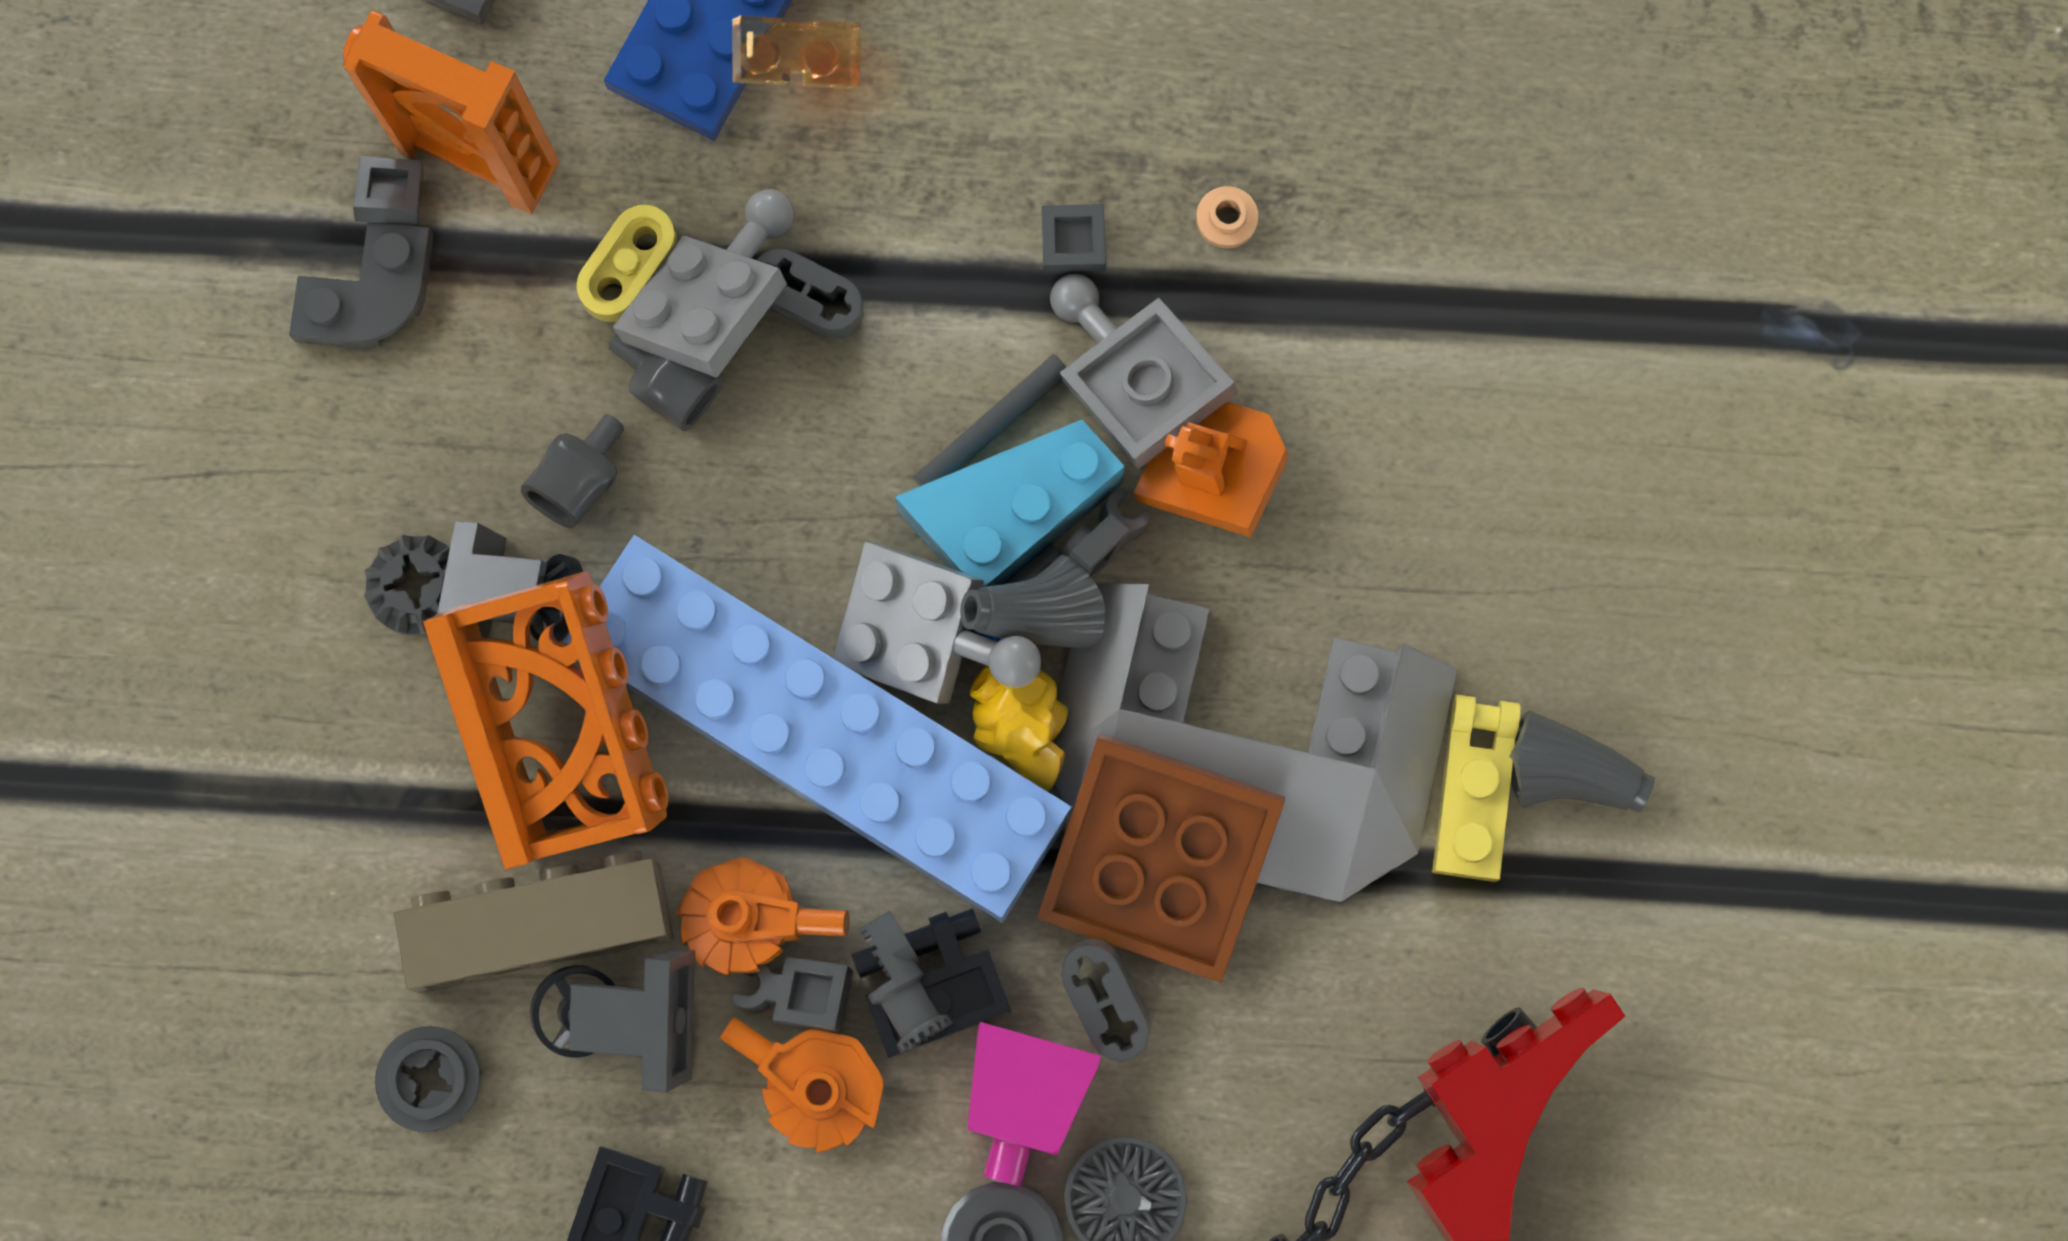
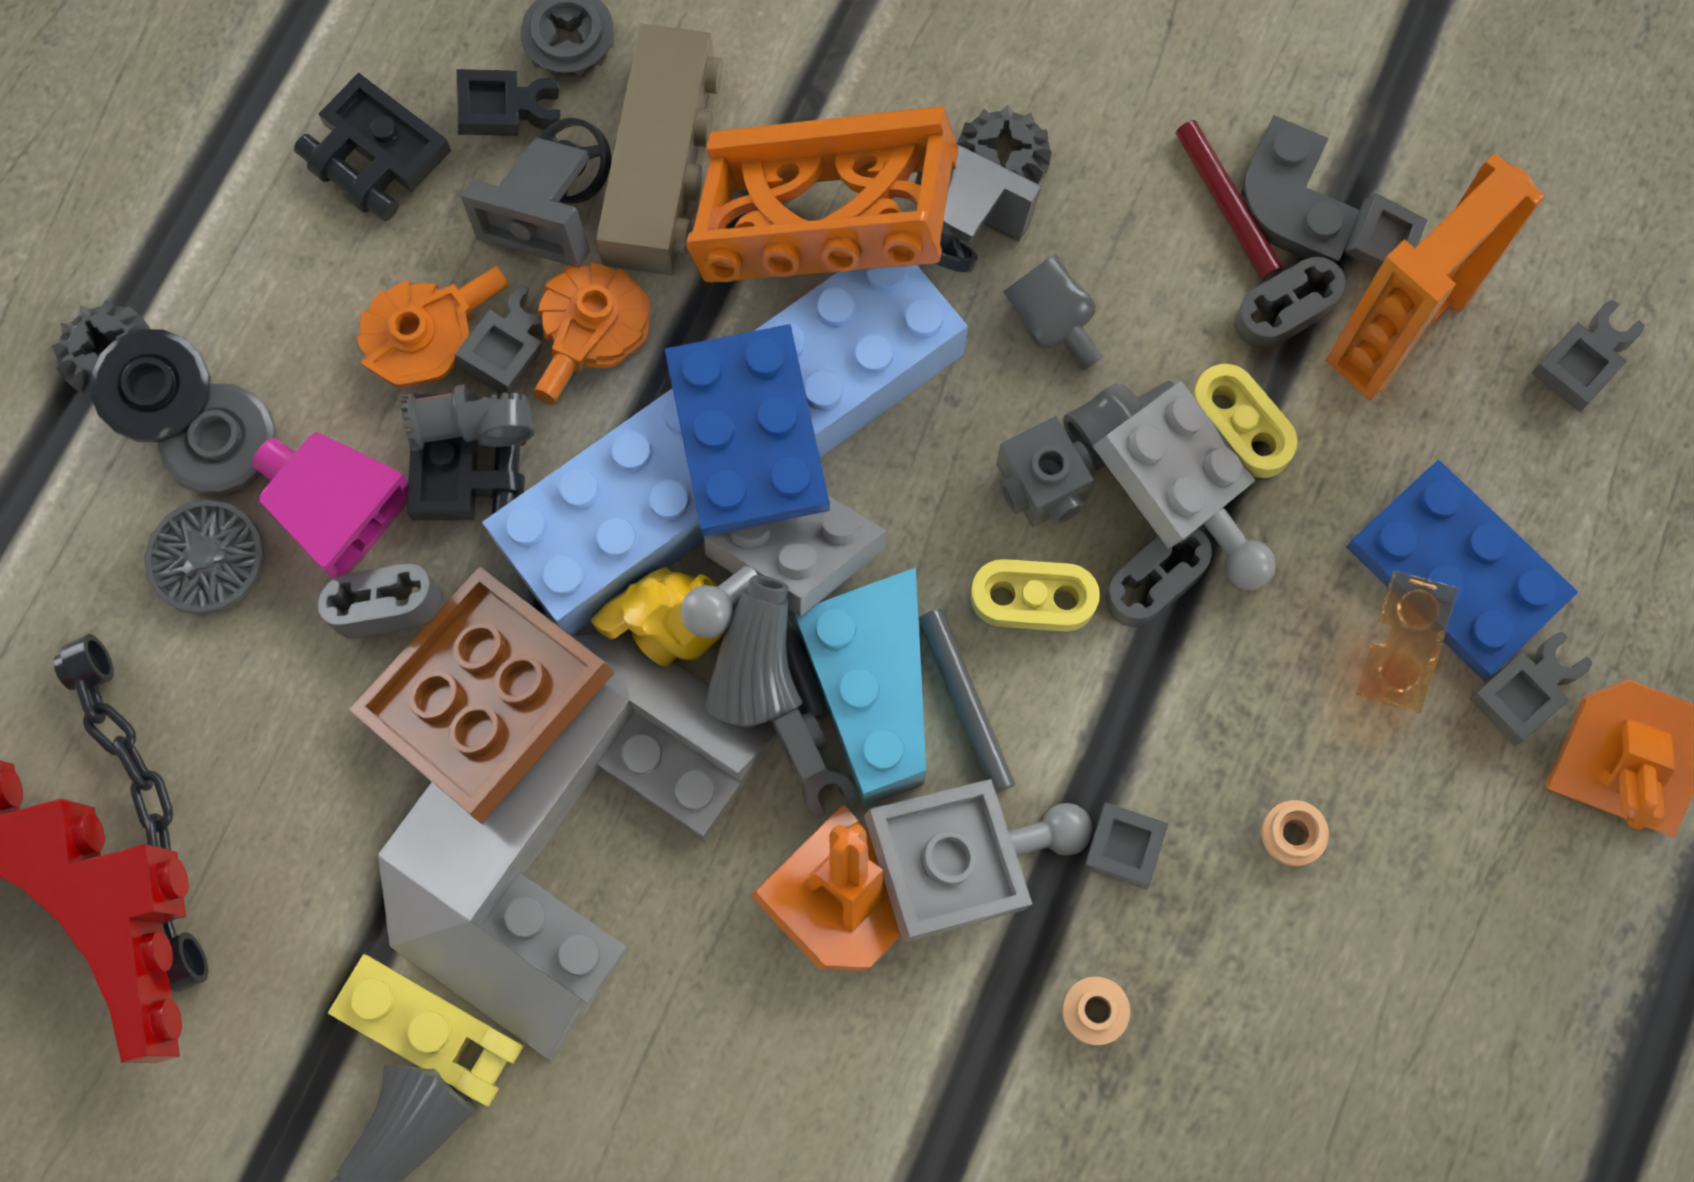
camera: 110 degrees right, 5 degrees down
(394, 352) = (1229, 200): none -> dark red bar
(495, 250) = (1283, 292): none -> dark grey beam
(538, 1117) = (494, 104): none -> black plate
(750, 440) = (1045, 473): none -> dark grey brick
(822, 694) = (747, 430): none -> blue plate
(872, 396) = (1033, 593): none -> light yellow plate
(999, 85) = (1311, 822): none -> light nougat plate

